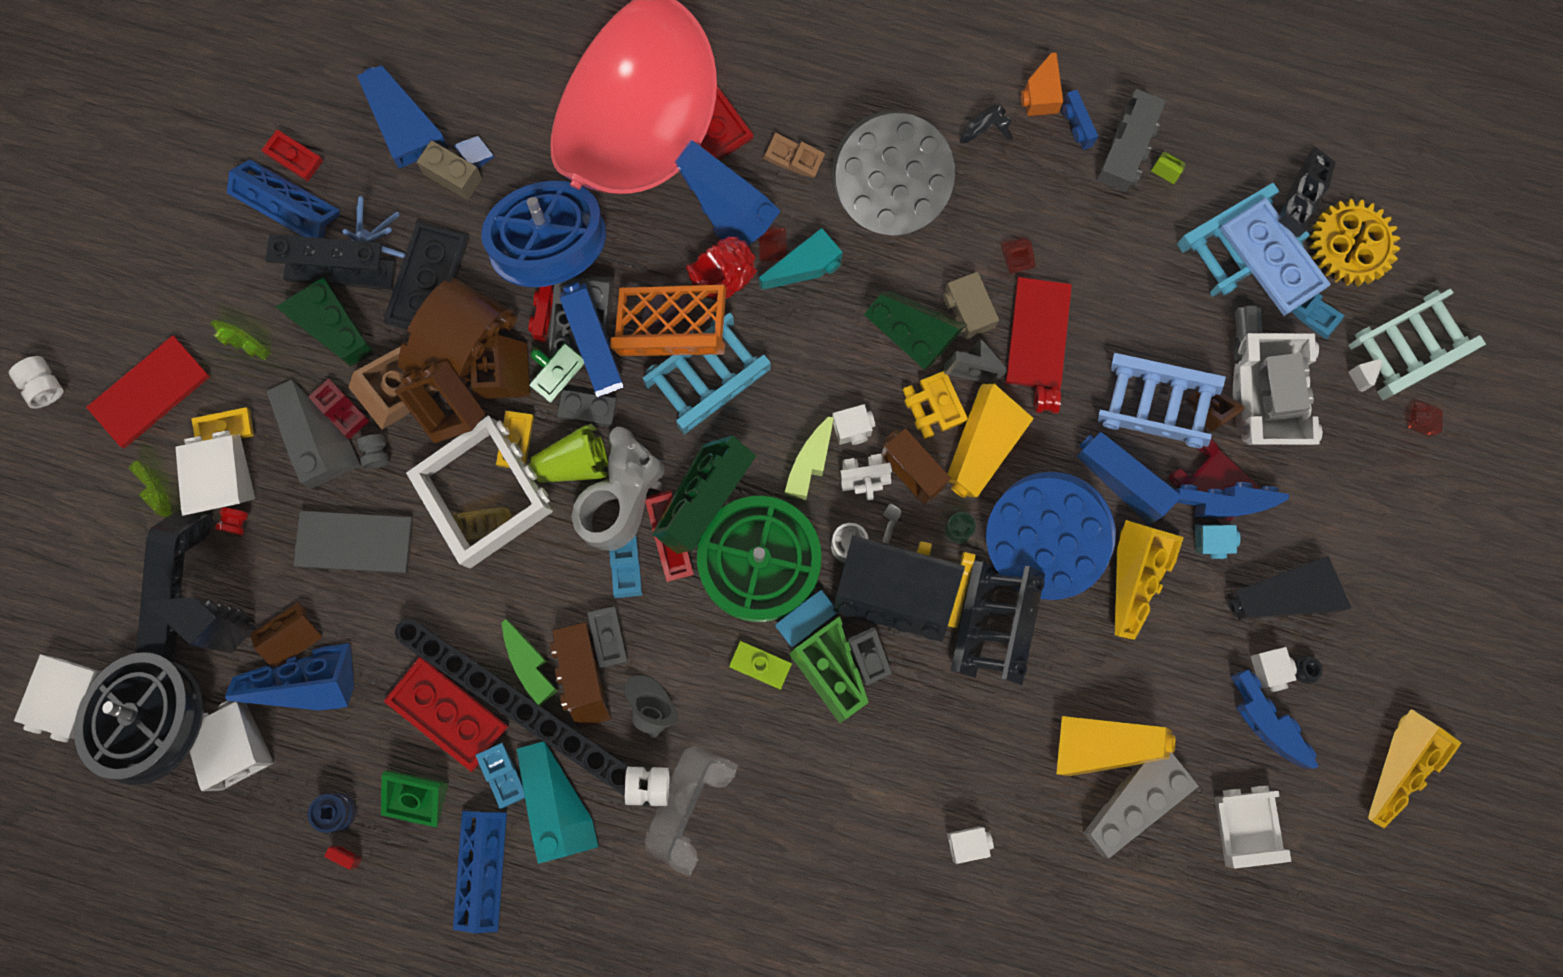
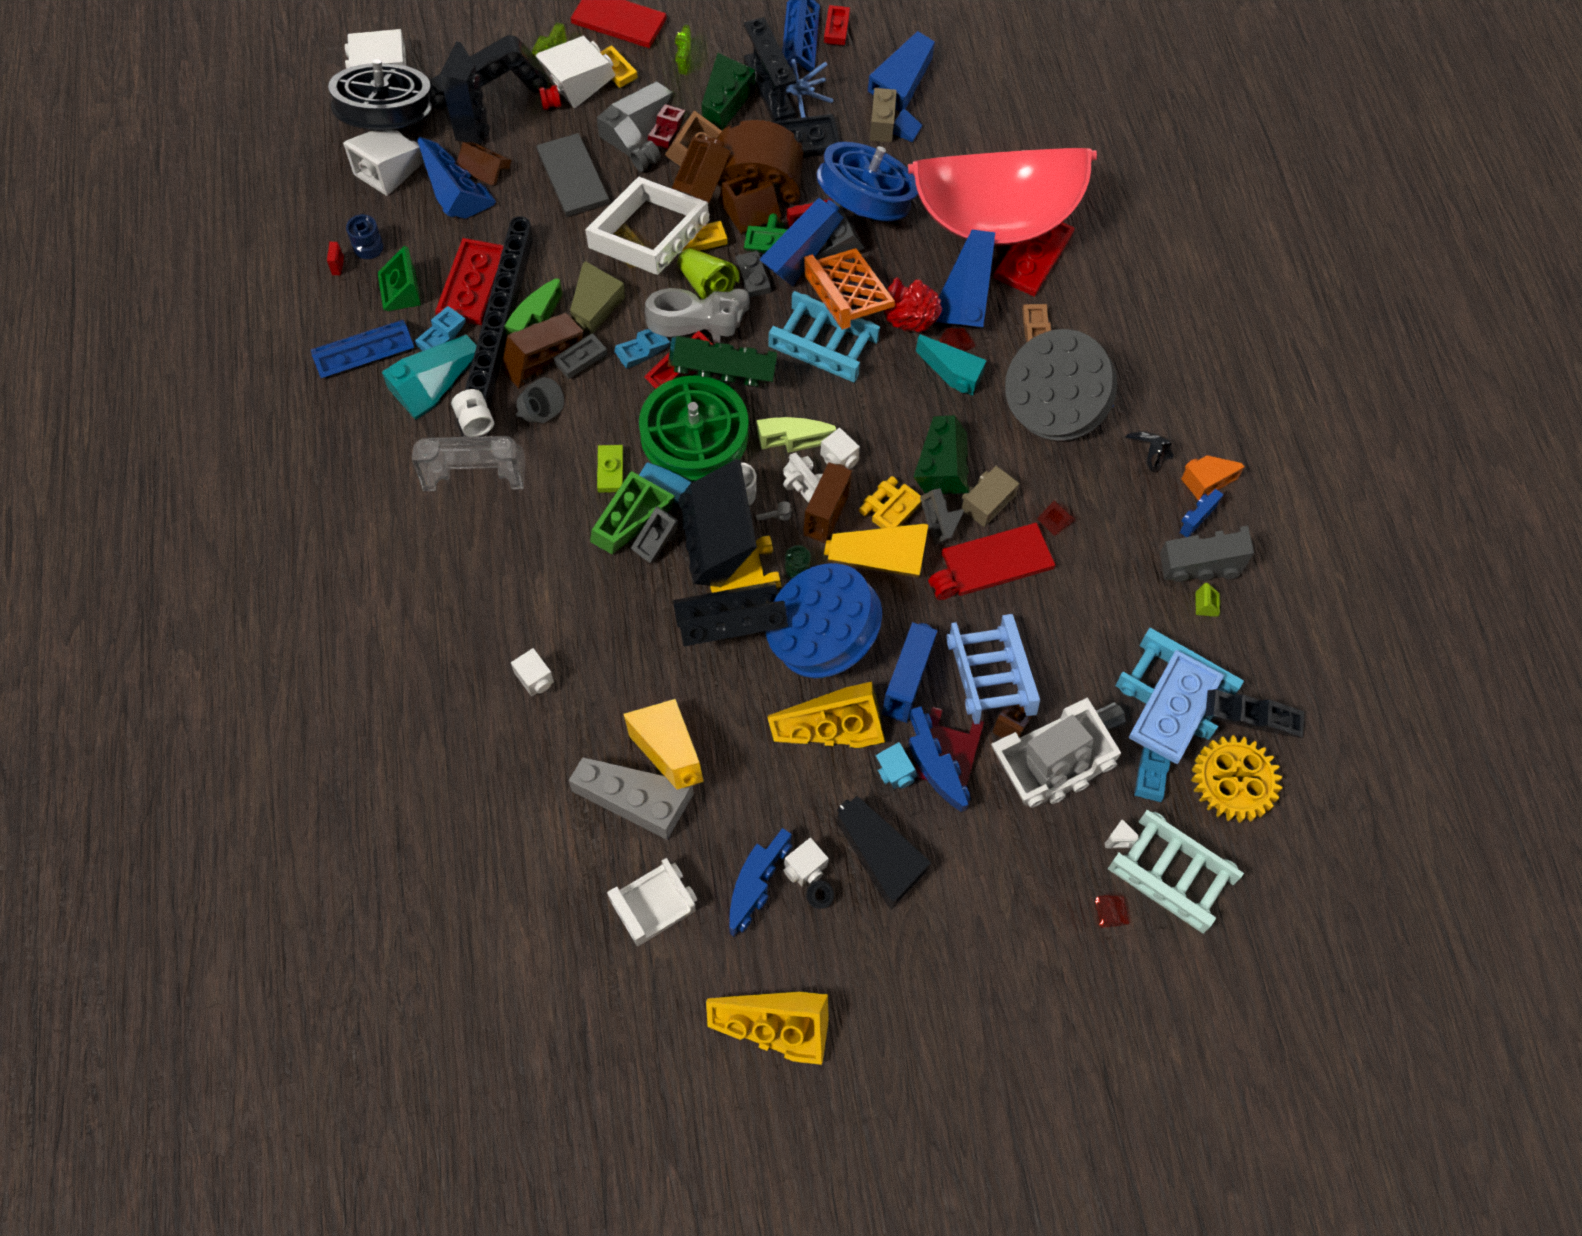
camera: 65 degrees right, 15 degrees down
(540, 590) = (595, 297): none -> olive slope

